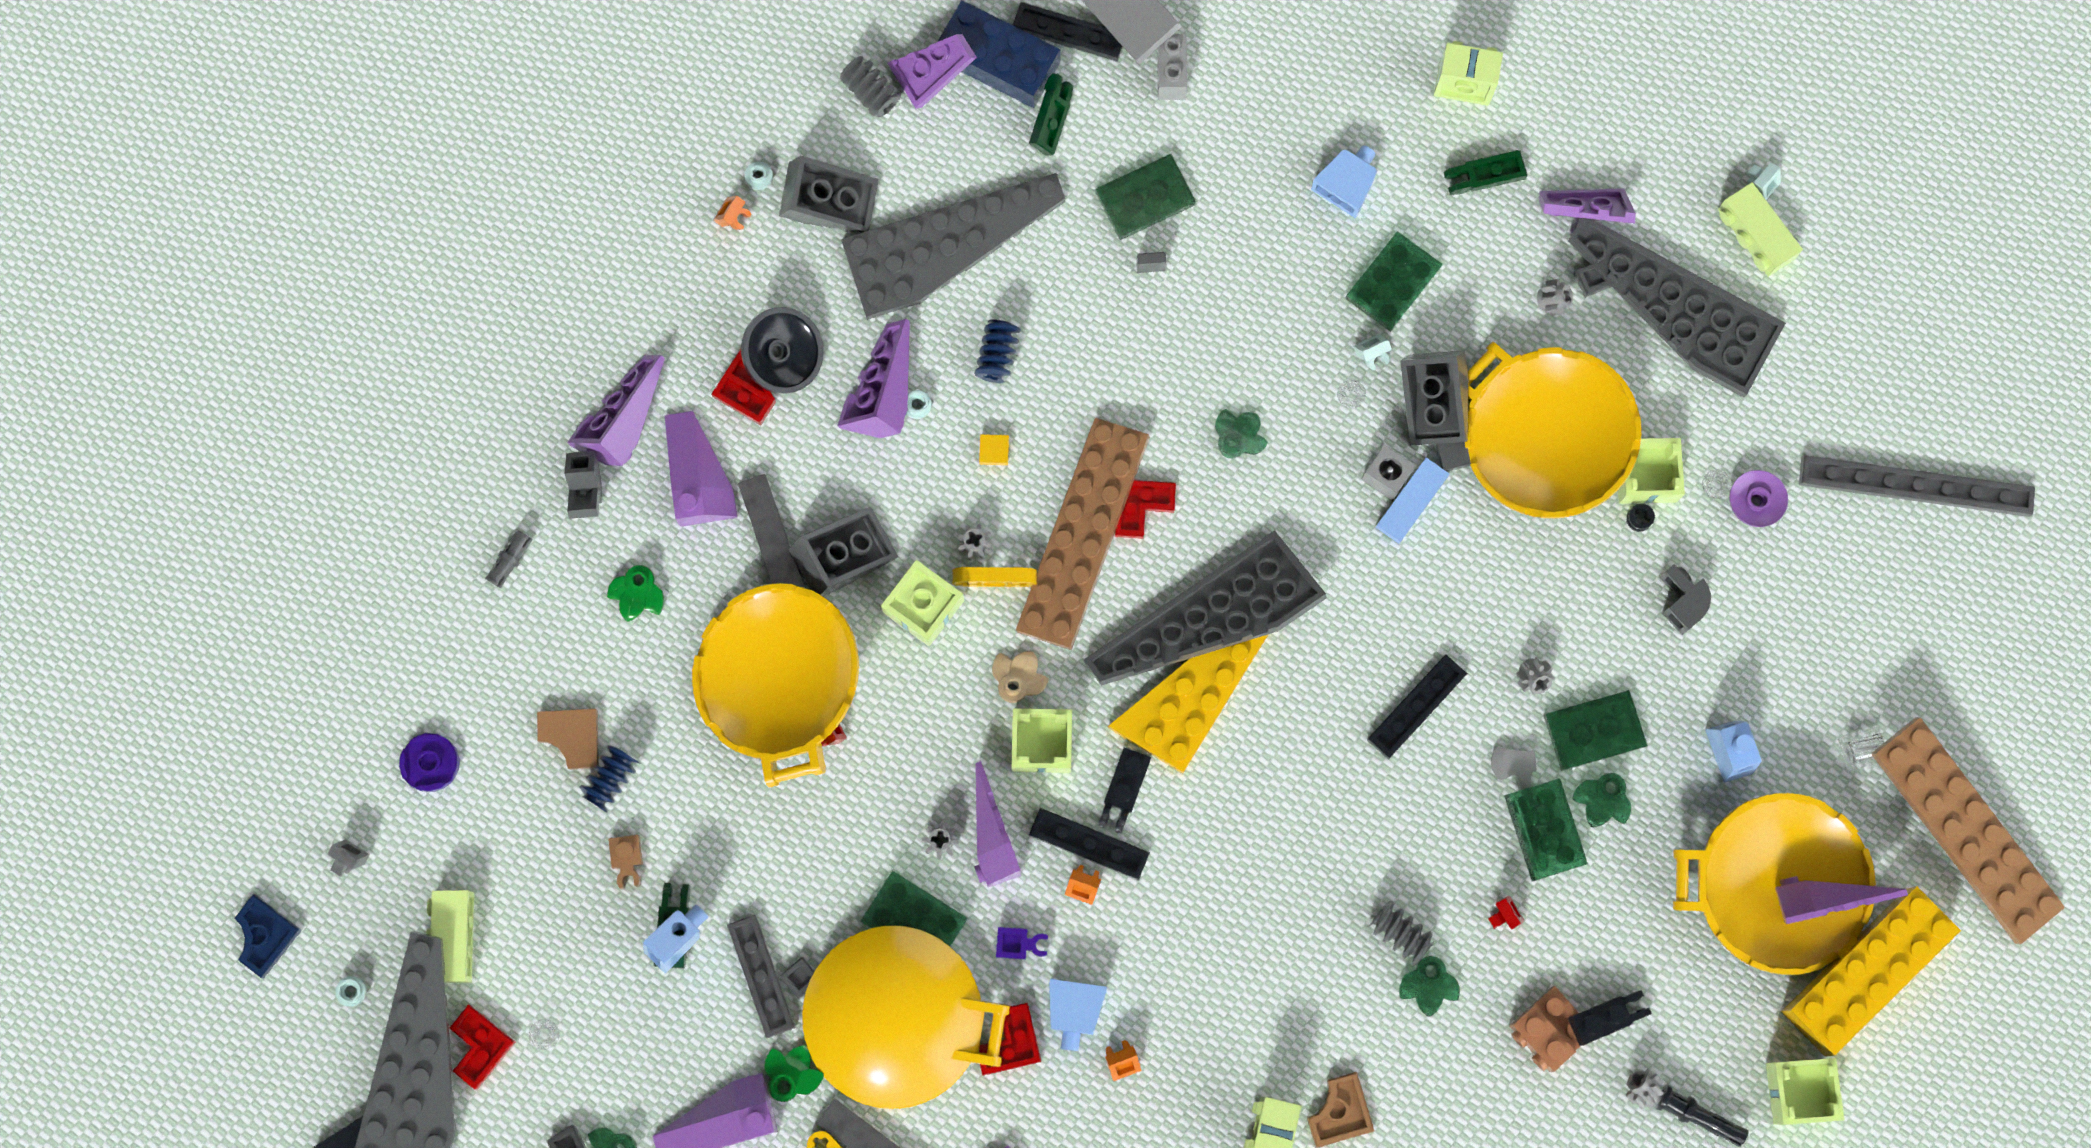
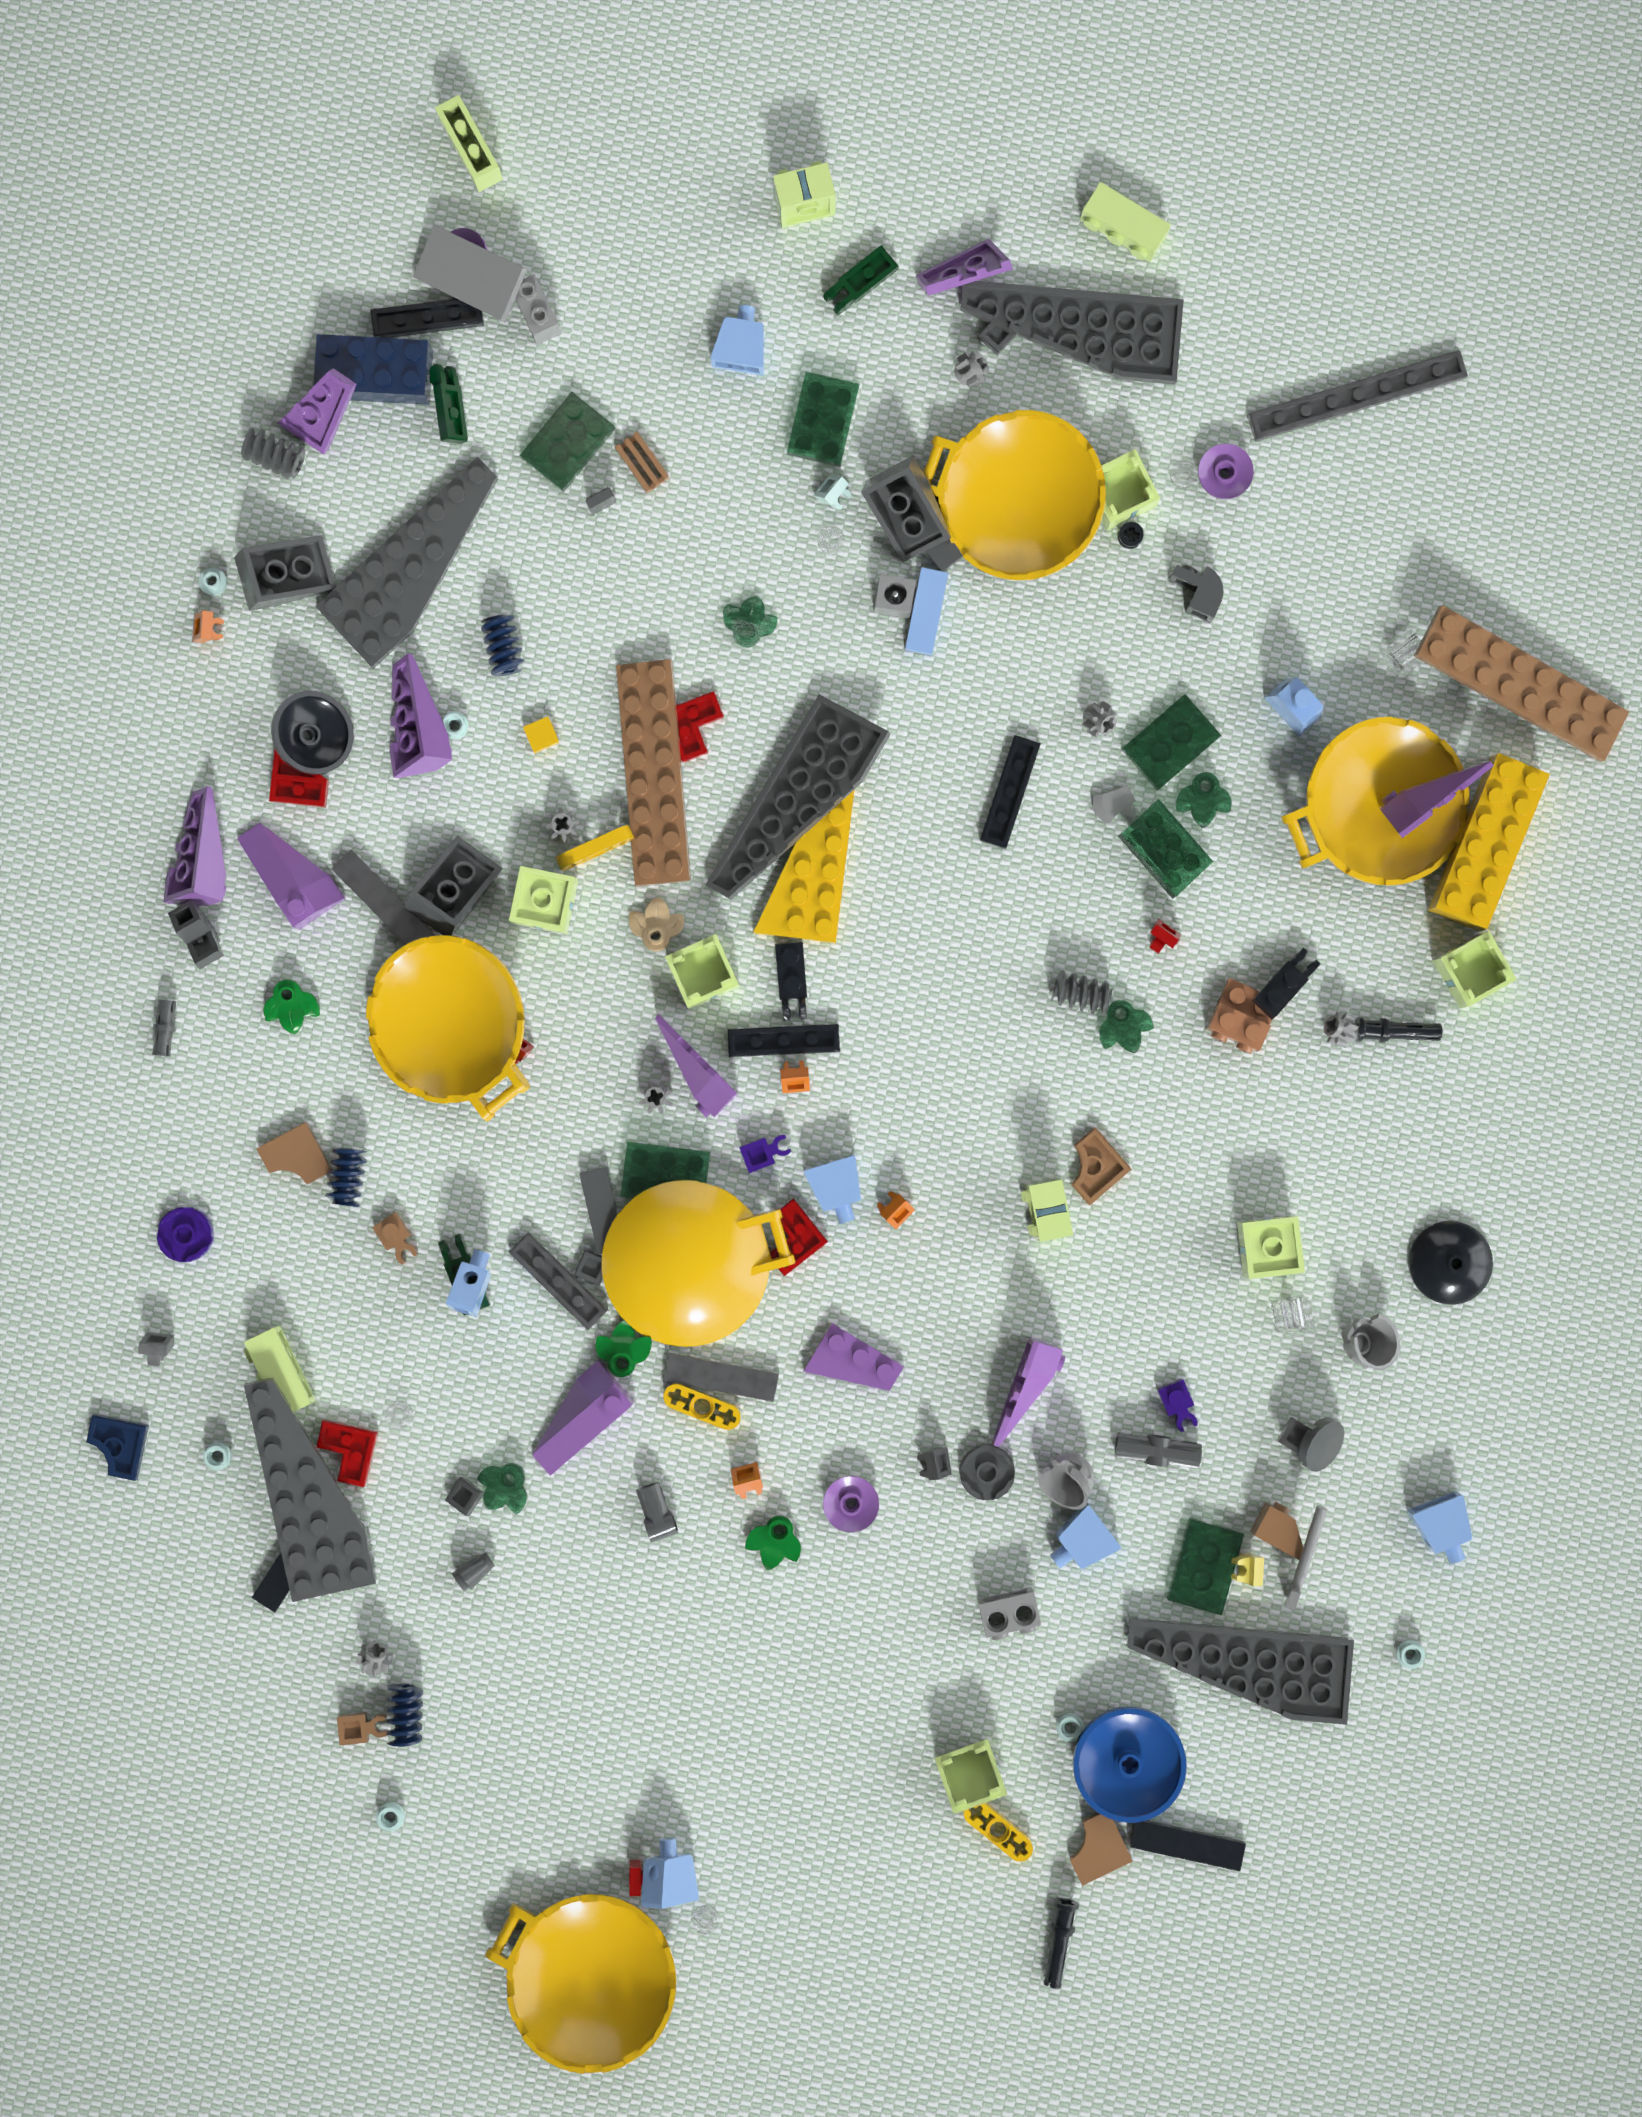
camera: 25 degrees left, 10 degrees up
(837, 918) = (599, 1203): none -> dark grey tile
(1202, 223) = (628, 443): none -> medium nougat tile
(1765, 180) = (1111, 173): light aqua tile -> none

